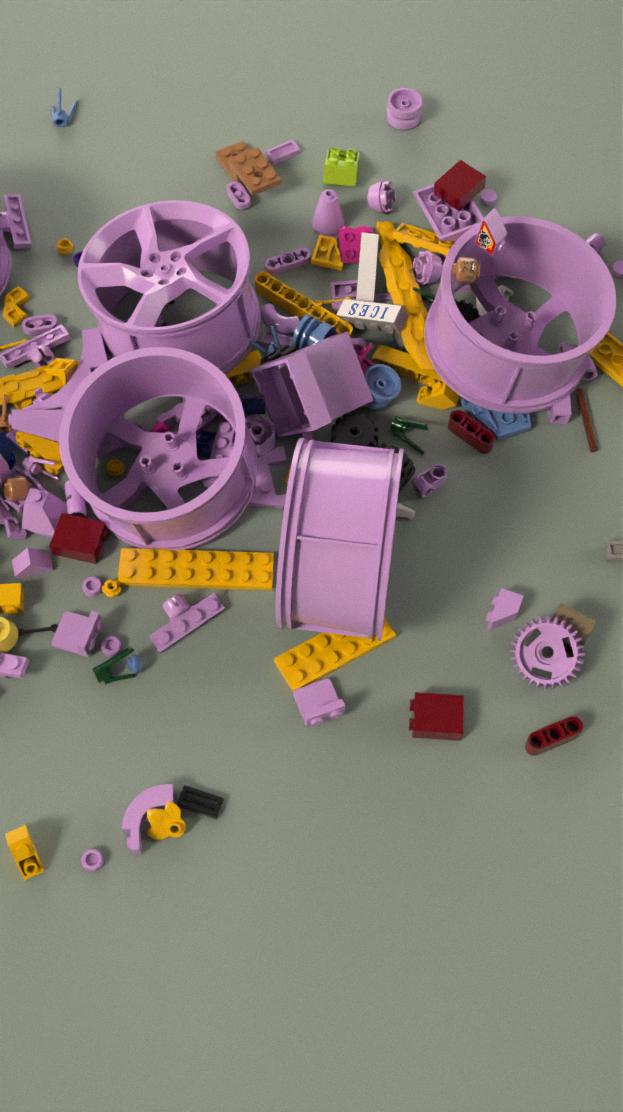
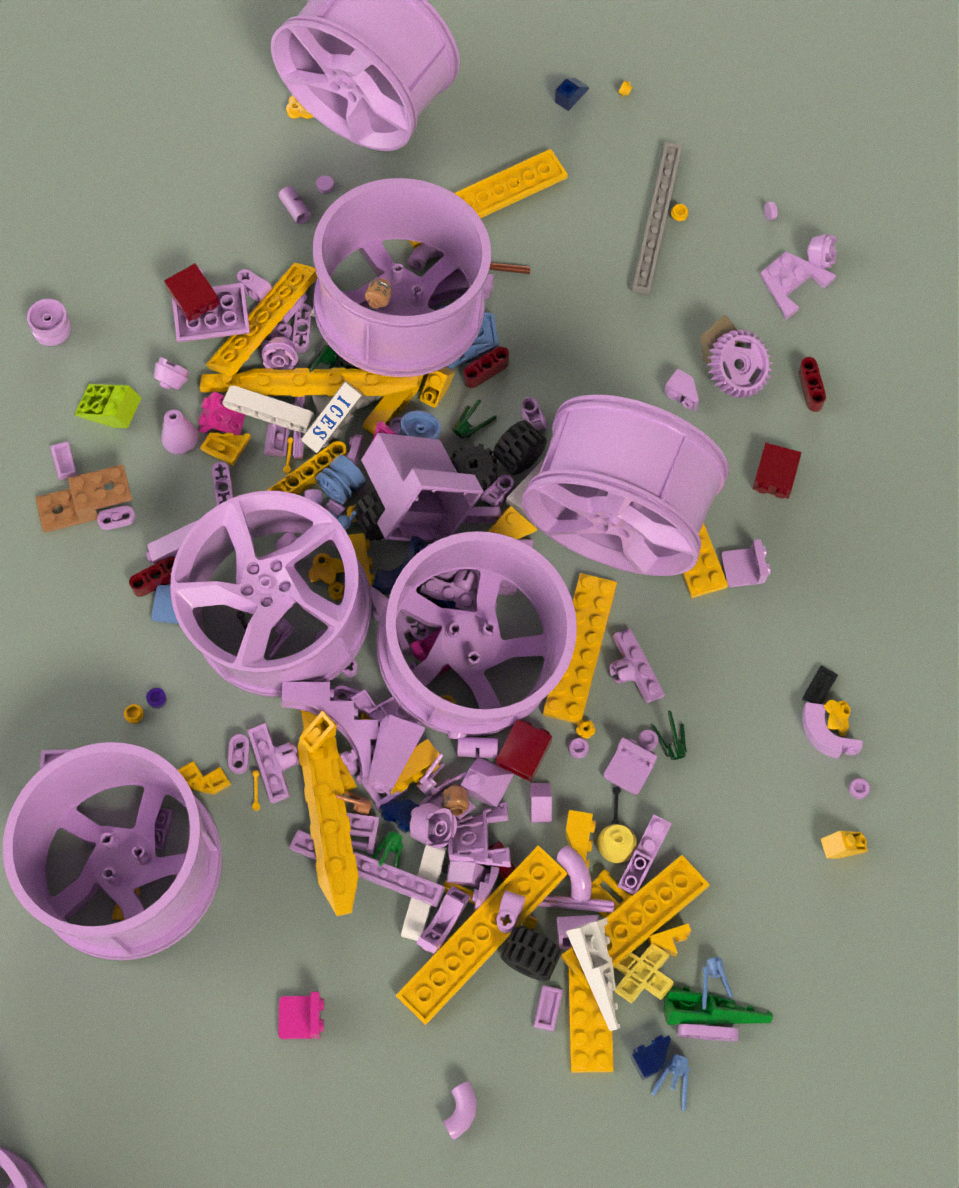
camera: 75 degrees left, 5 degrees up
(134, 663) = (678, 719): medium blue plate -> none
(492, 233) = (342, 260): lavender slope -> none

